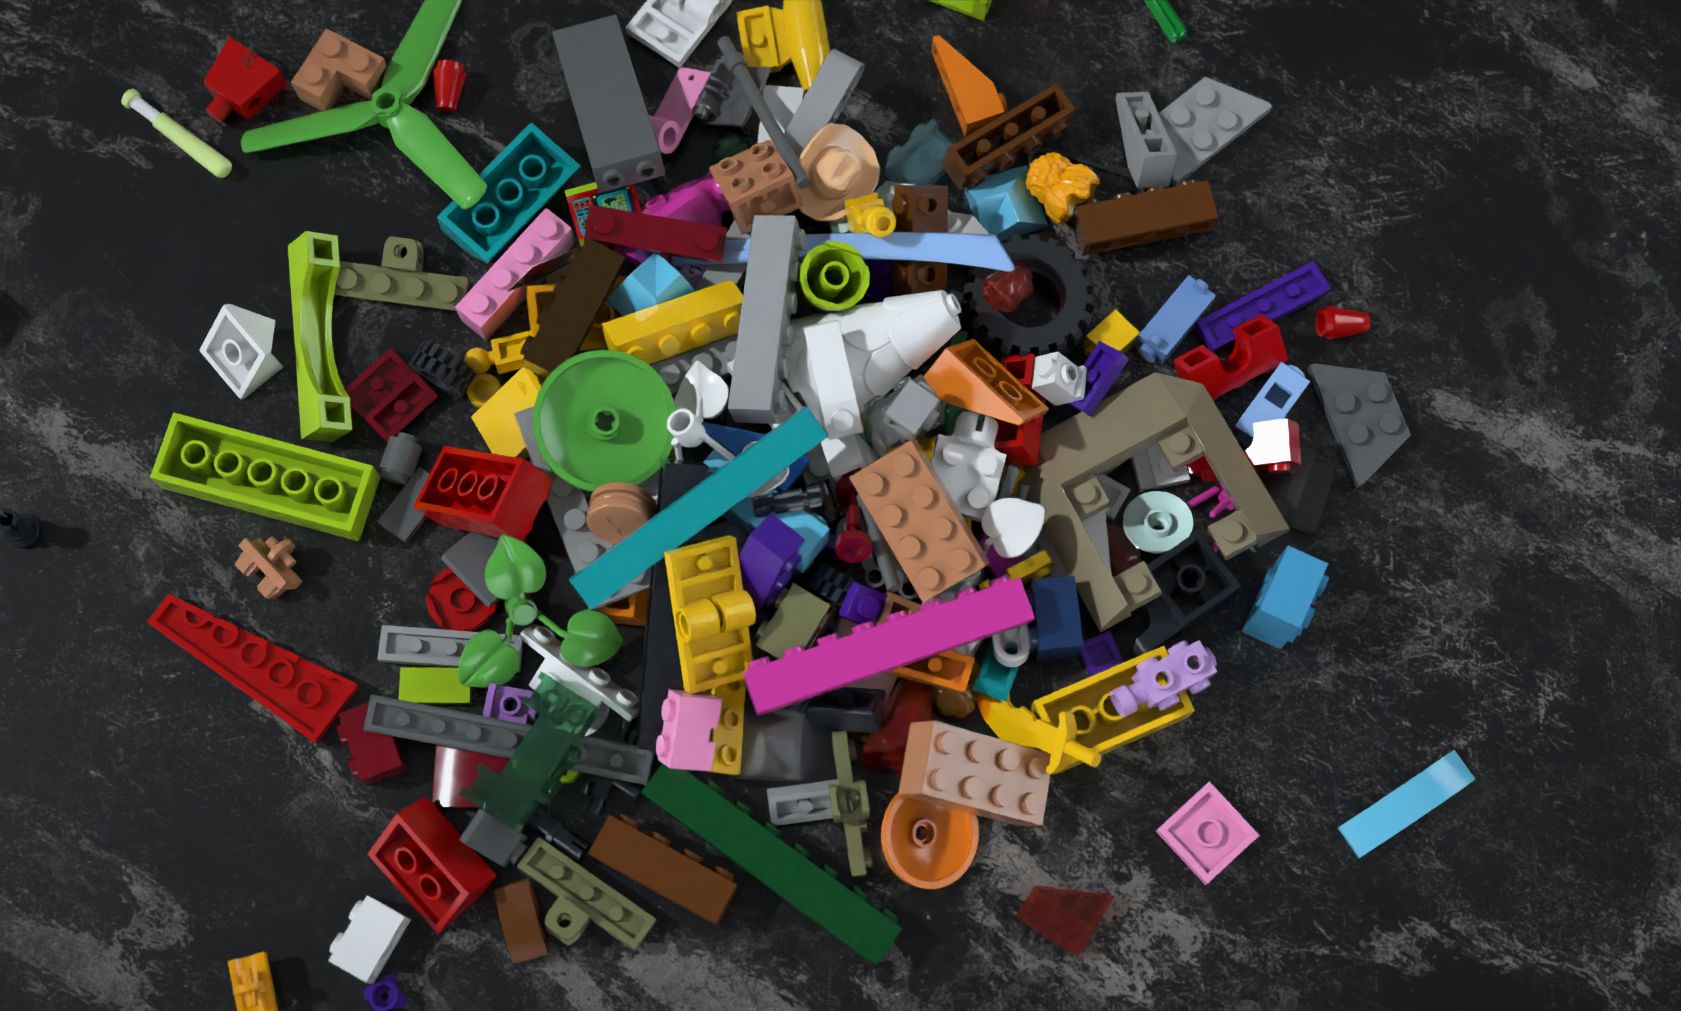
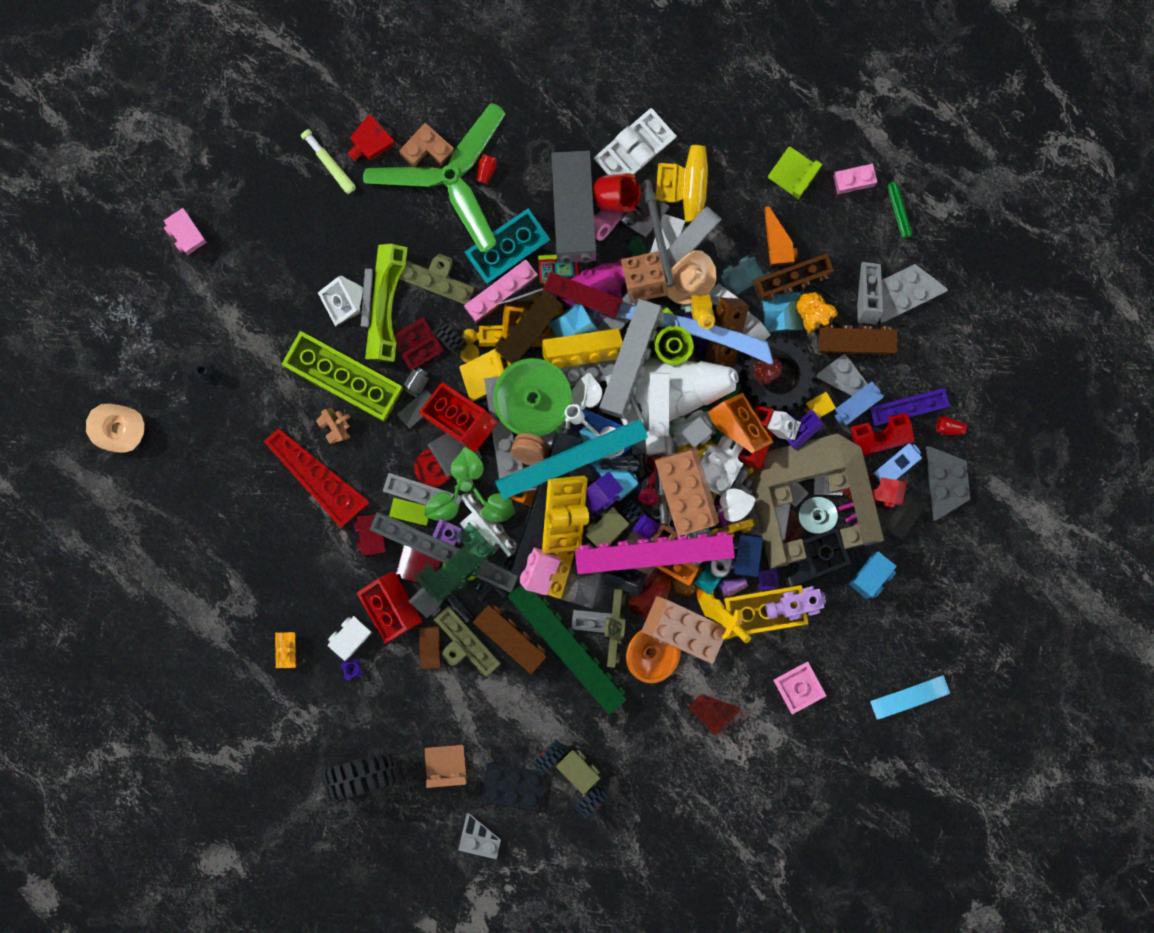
camera: 15 degrees right, 10 degrees up
(285, 337) = (367, 298): none -> light grey tile
(676, 65) = (616, 193): none -> red cylinder
(1038, 681) = (731, 586): none -> medium lavender cone
(1135, 283) = (843, 376): none -> light grey wing

